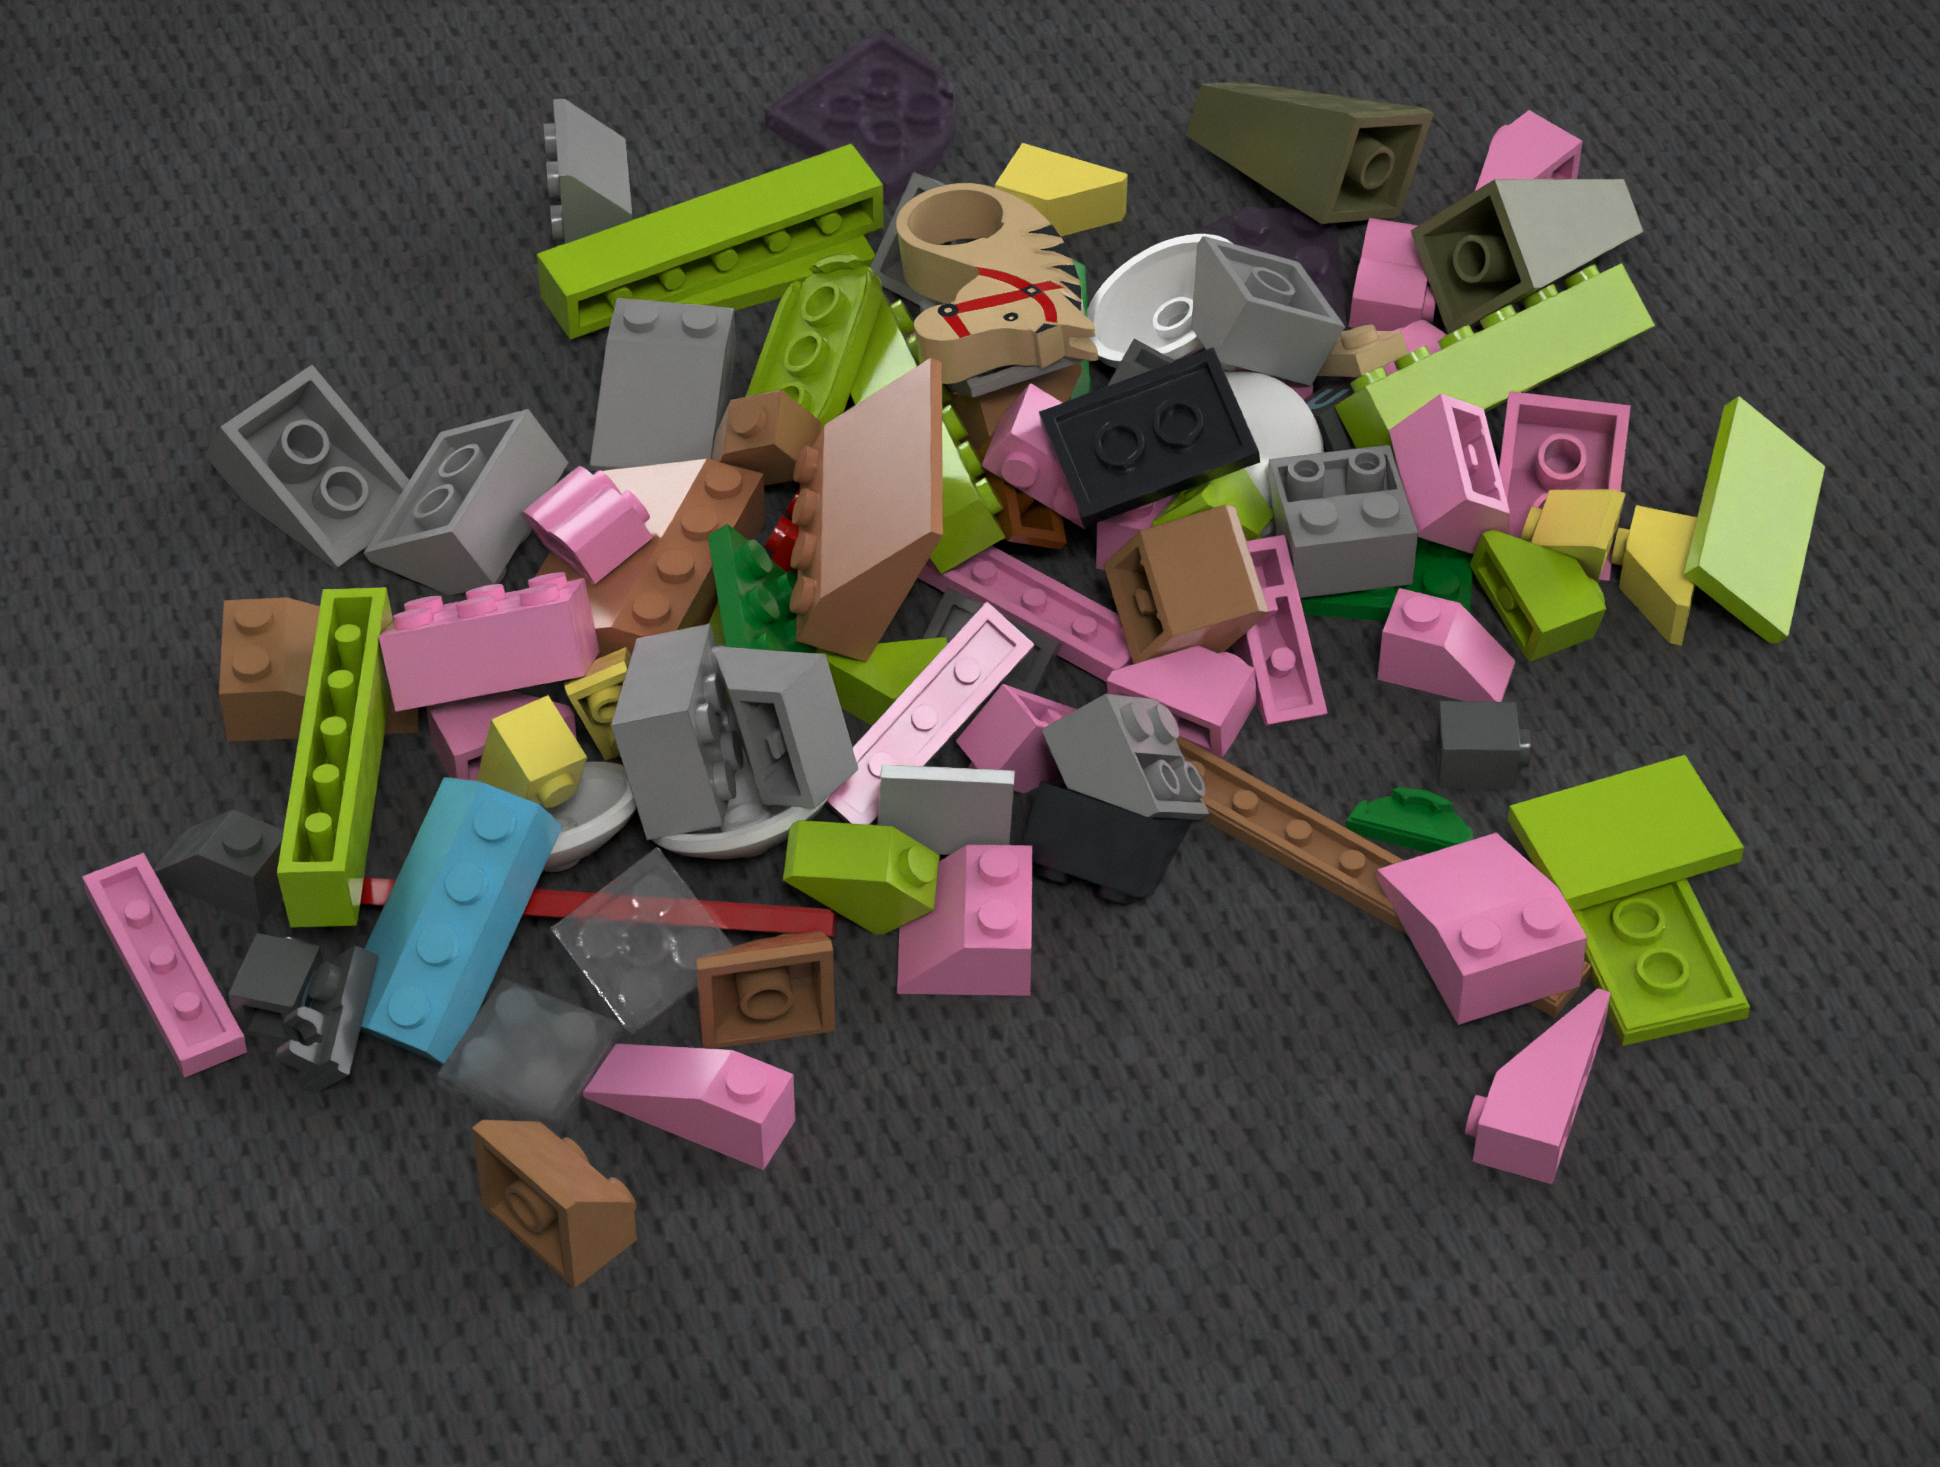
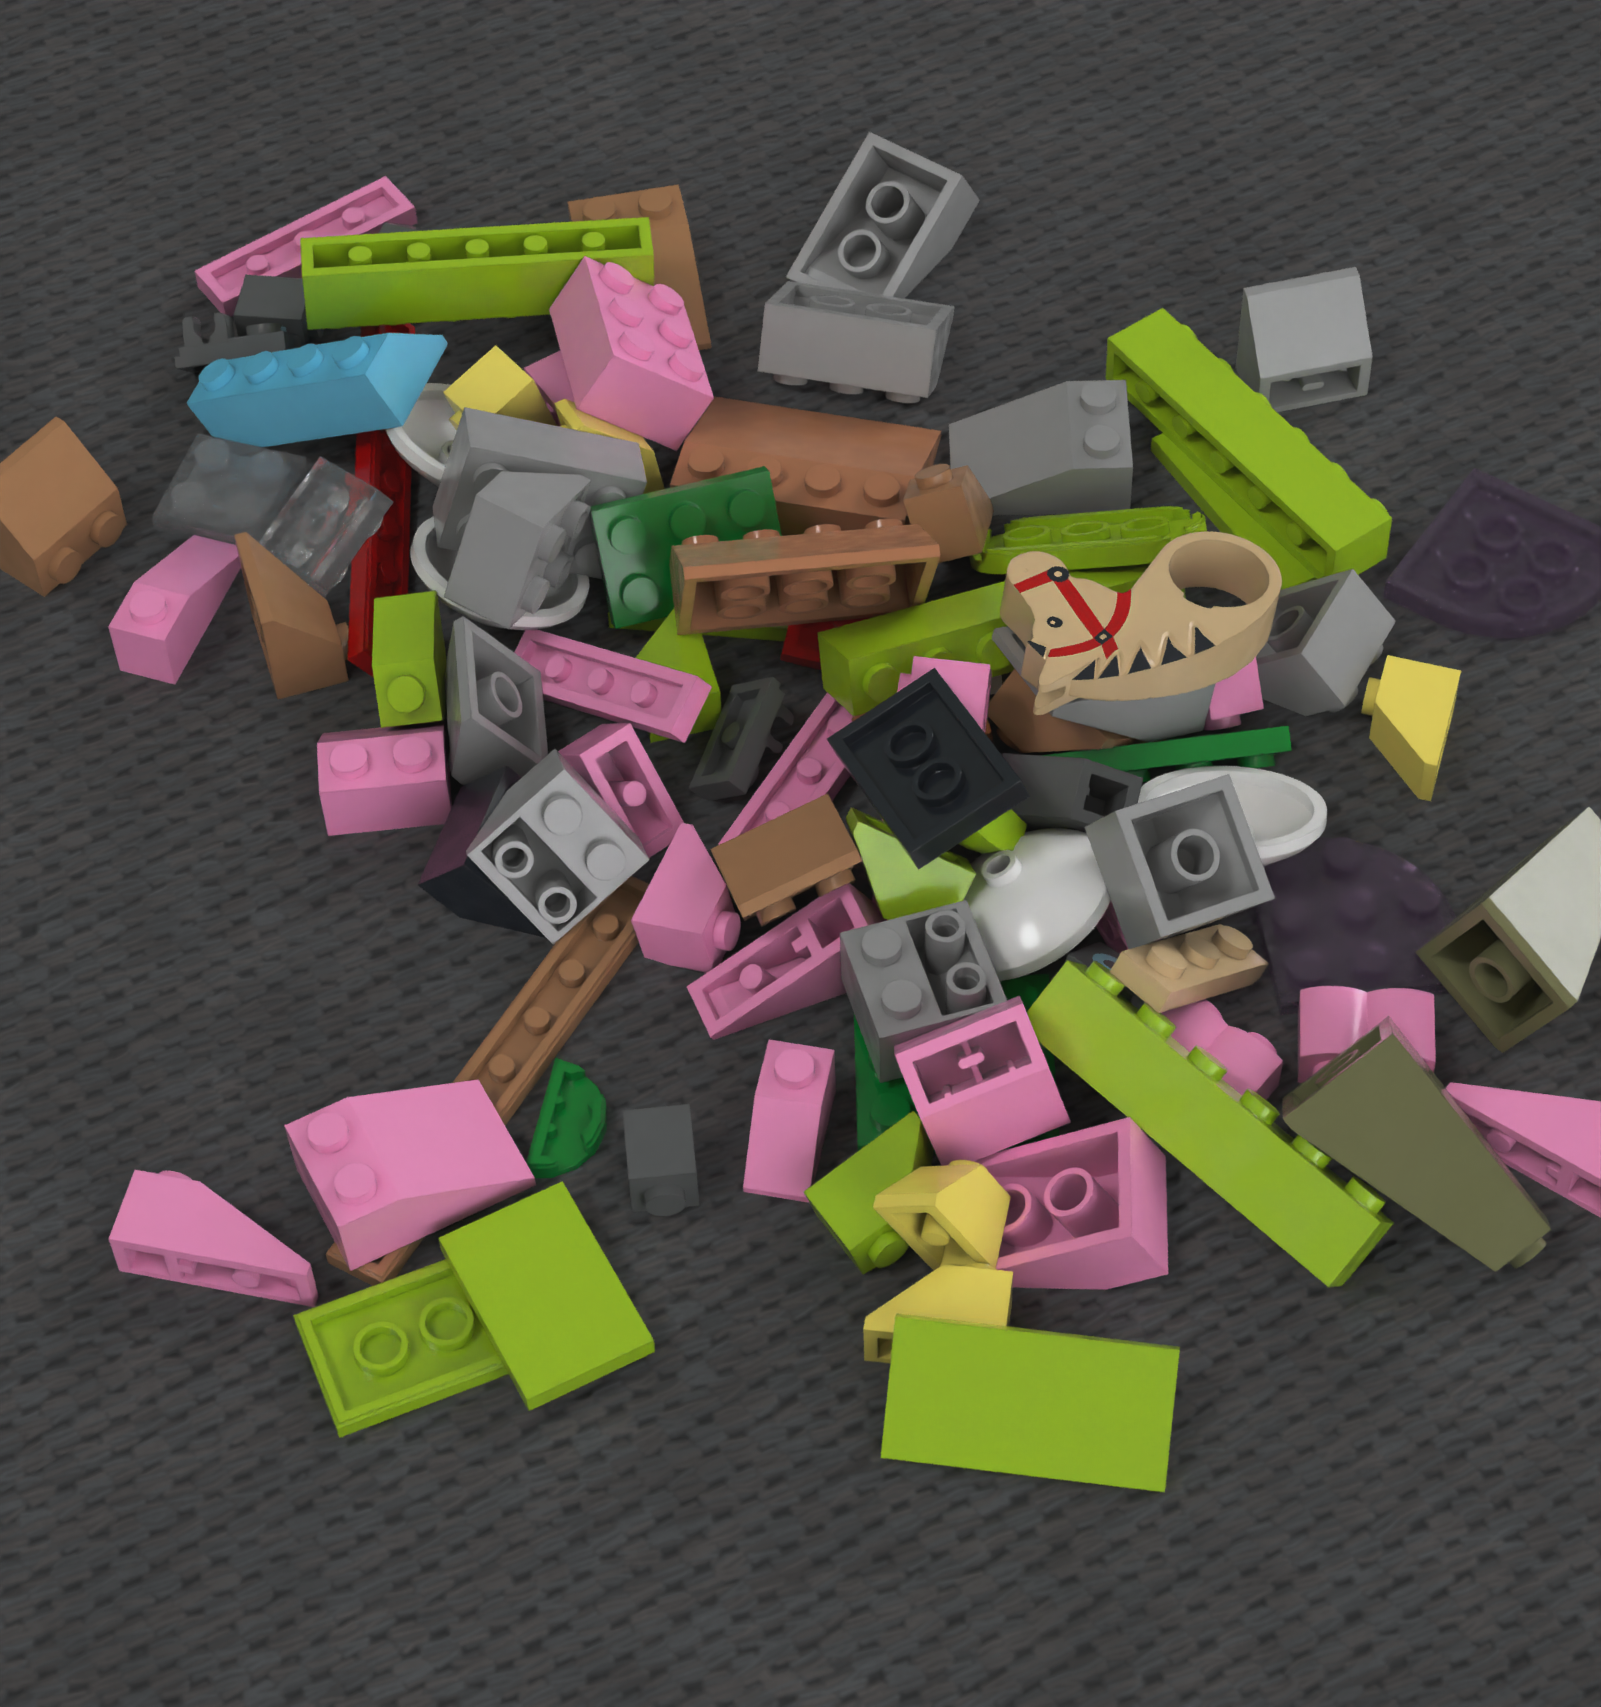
camera: 85 degrees right, 5 degrees up
(589, 523) = (819, 408): bright pink brick -> none

